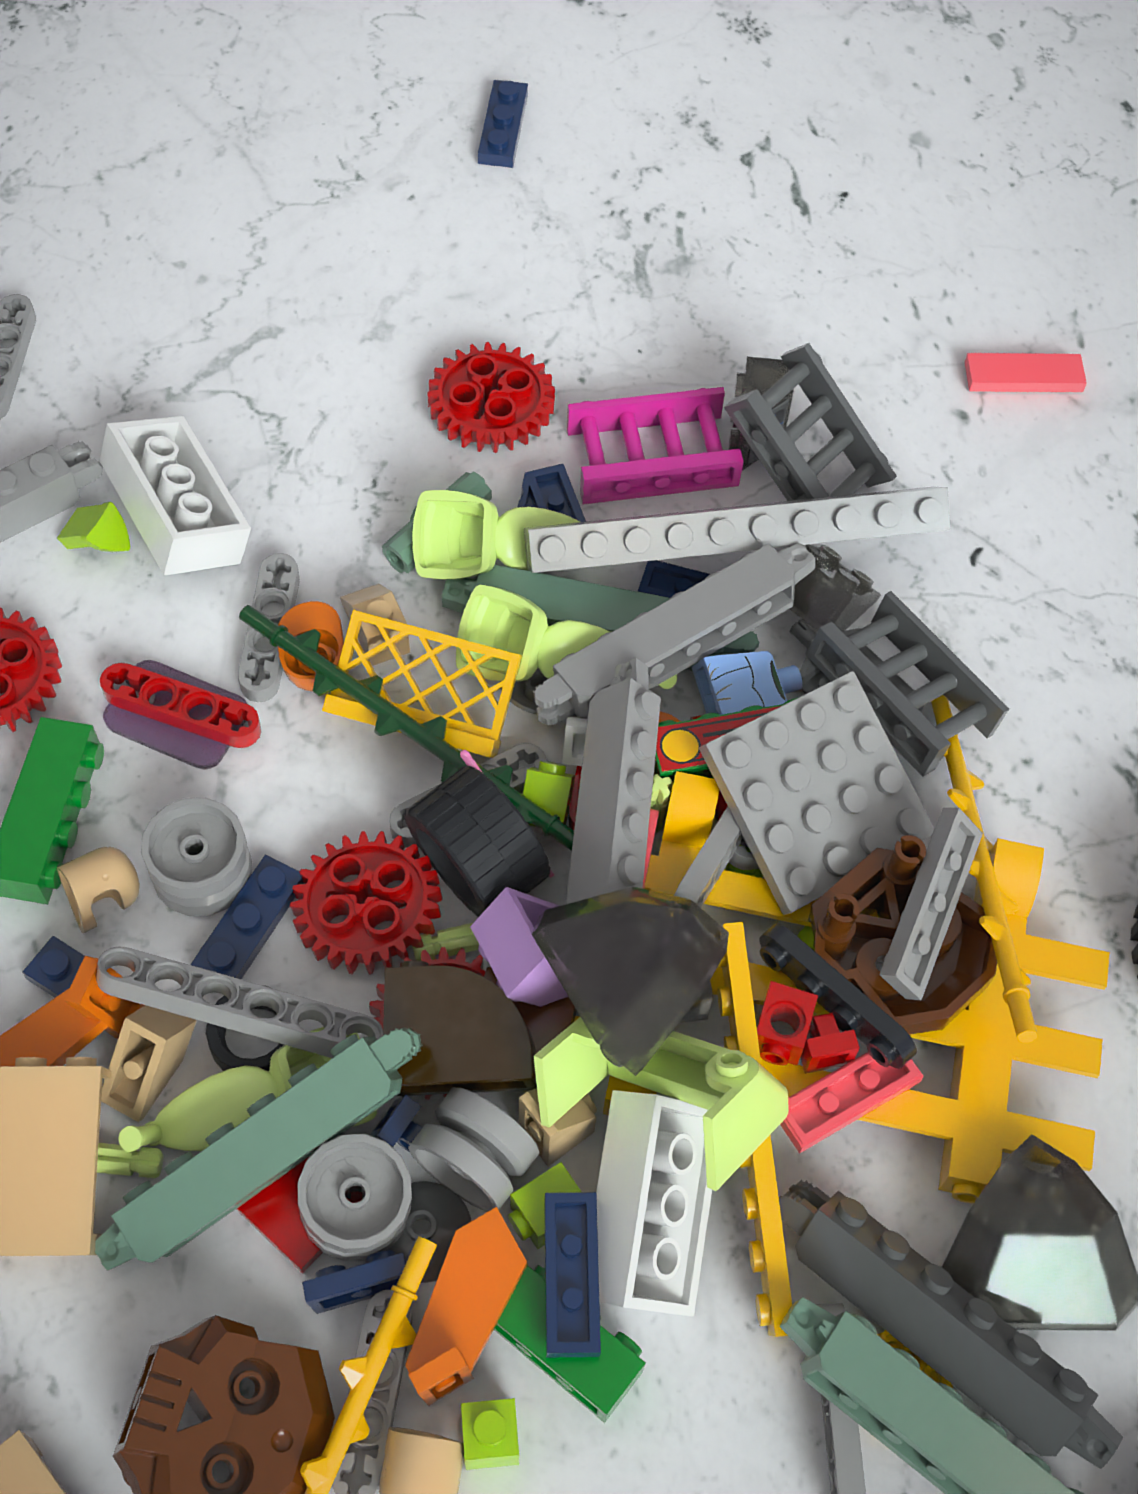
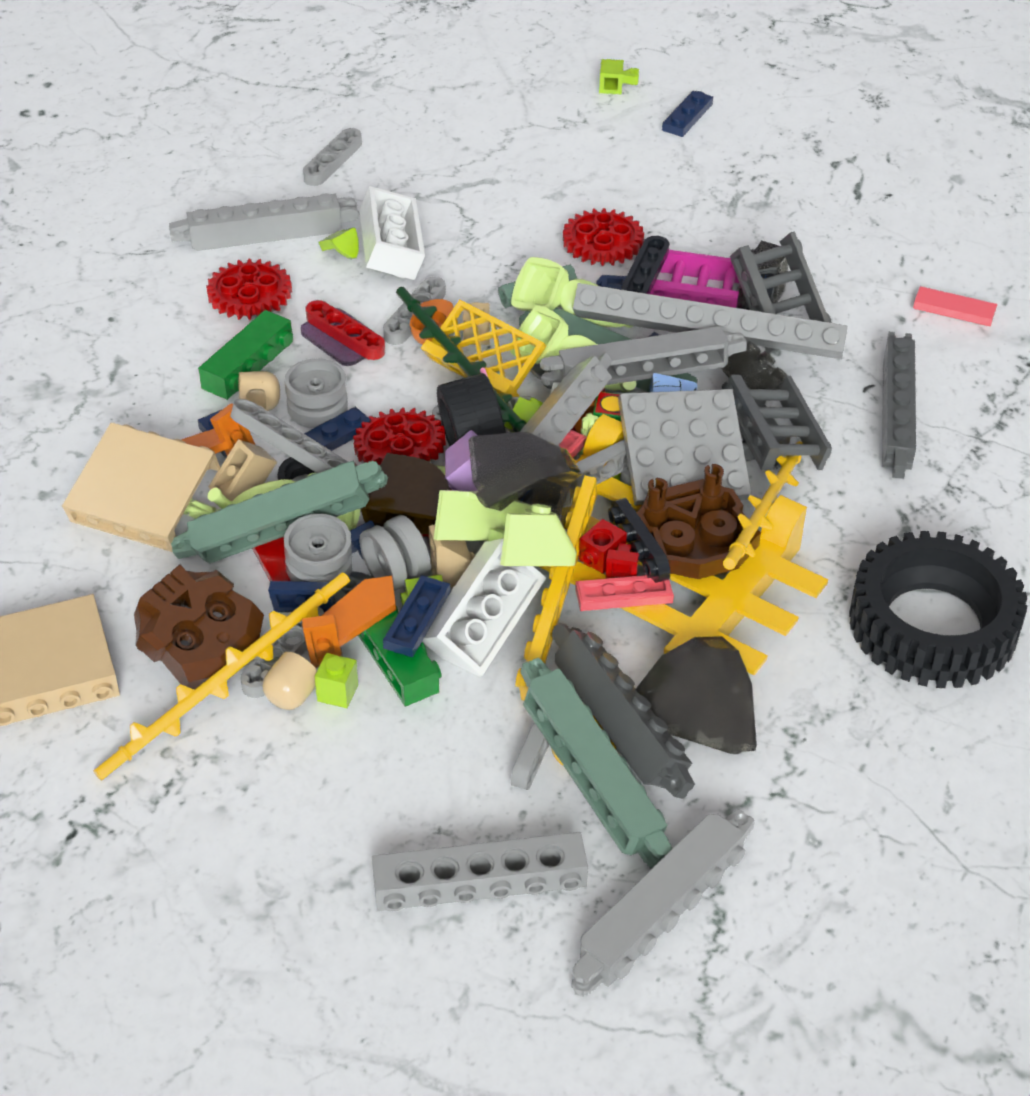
camera: 25 degrees right, 15 degrees down
(369, 85) = (613, 76): none -> lime brick
(597, 454) = (647, 265): none -> black plate
(931, 904) = (716, 504): light grey plate -> none
(1043, 583) = (899, 405): none -> dark grey hinge

